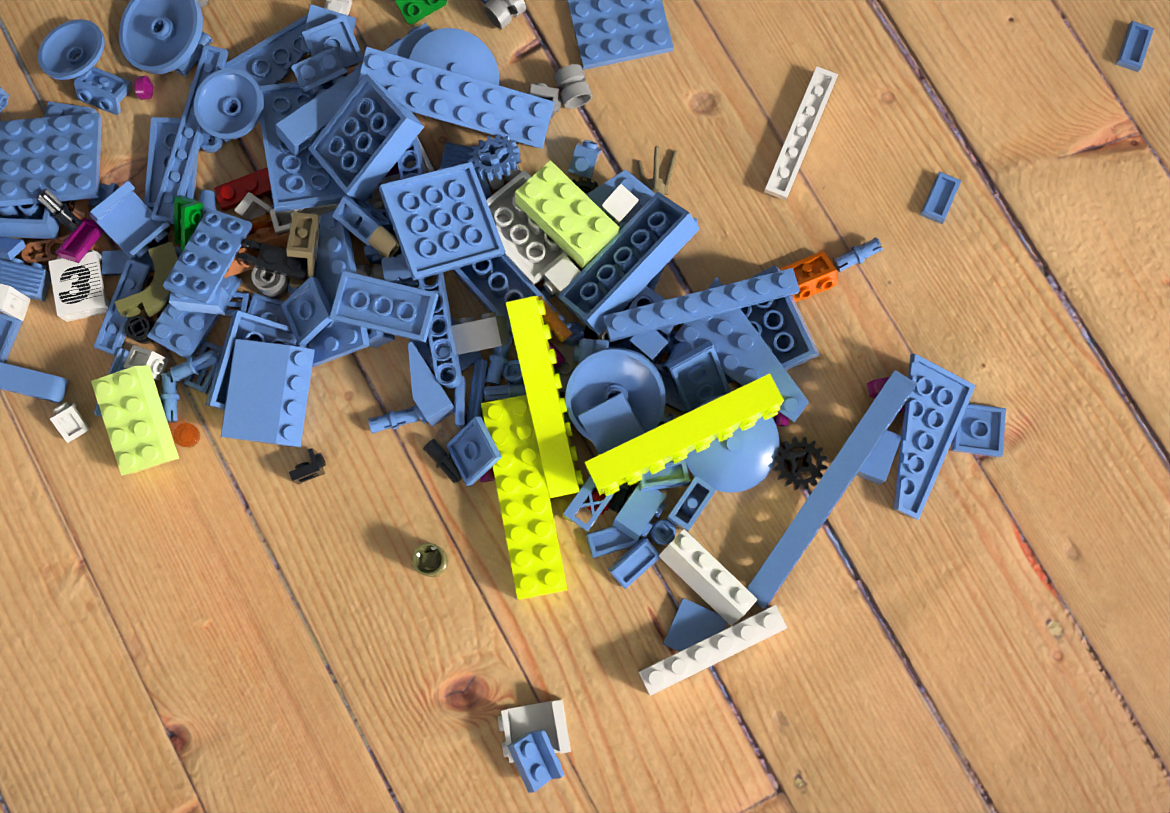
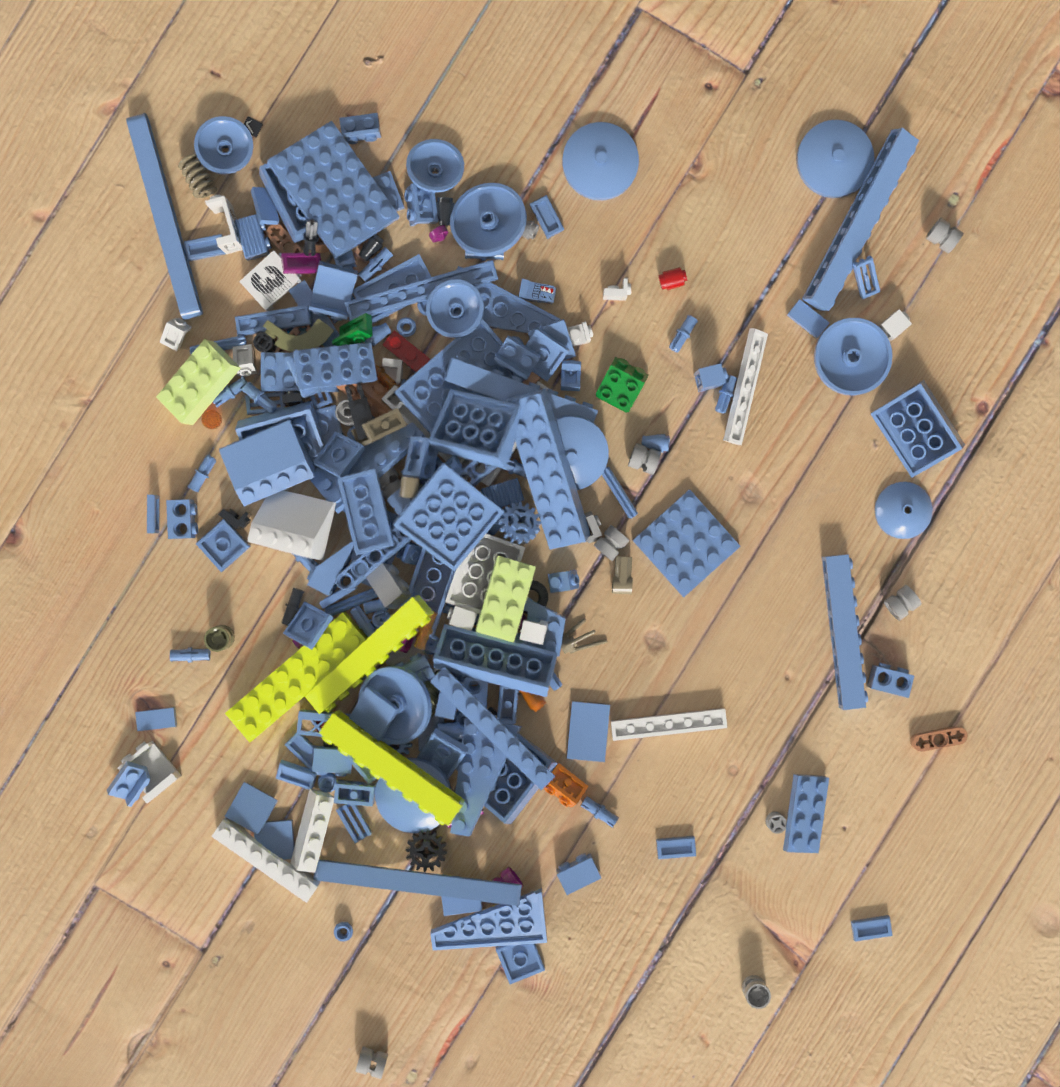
camera: 55 degrees right, 10 degrees up
(112, 163) = (371, 246): none -> black cone
(121, 67) = (444, 209): none -> black cone
(133, 168) = (375, 264): none -> medium blue pin
(216, 168) = (404, 321): none -> medium blue plate
(217, 329) = (292, 398): none -> black bracket
(238, 478) = (202, 473): none -> medium blue axle
(248, 557) = (153, 513): none -> medium blue tile
(266, 23) = (537, 292): none -> medium blue leg
(271, 533) = (175, 519): none -> medium blue brick
(330, 501) = (223, 545): none -> medium blue tile
(353, 403) = (293, 524): none -> white slope
(372, 35) = (570, 375): none -> medium blue bracket
(430, 607) = (190, 655): none -> medium blue pin
(433, 141) = (515, 467): none -> medium blue axle
(460, 299) = (410, 553): none -> medium blue bracket
(480, 689) = (156, 719): none -> medium blue tile
(526, 54) = (619, 493): none -> medium blue axle
(618, 97) = (622, 580): none -> dark tan piece
(644, 635) = (251, 808): none -> medium blue tile
(680, 280) = (507, 705): none -> medium blue brick
(693, 258) = (534, 701): none -> orange cone
(745, 528) = (346, 823): none -> medium blue tile
(762, 220) = (588, 731): none -> medium blue tile
(851, 610) = (340, 936): none -> medium blue plate
(914, 312) = (578, 873): none -> medium blue brick
(969, 74) = (776, 826): none -> light grey wheel
(974, 44) = (806, 813): none -> medium blue plate
(1010, 668) = (364, 1062): none -> light grey wheel
(1146, 194) = (756, 992): none -> light grey wheel

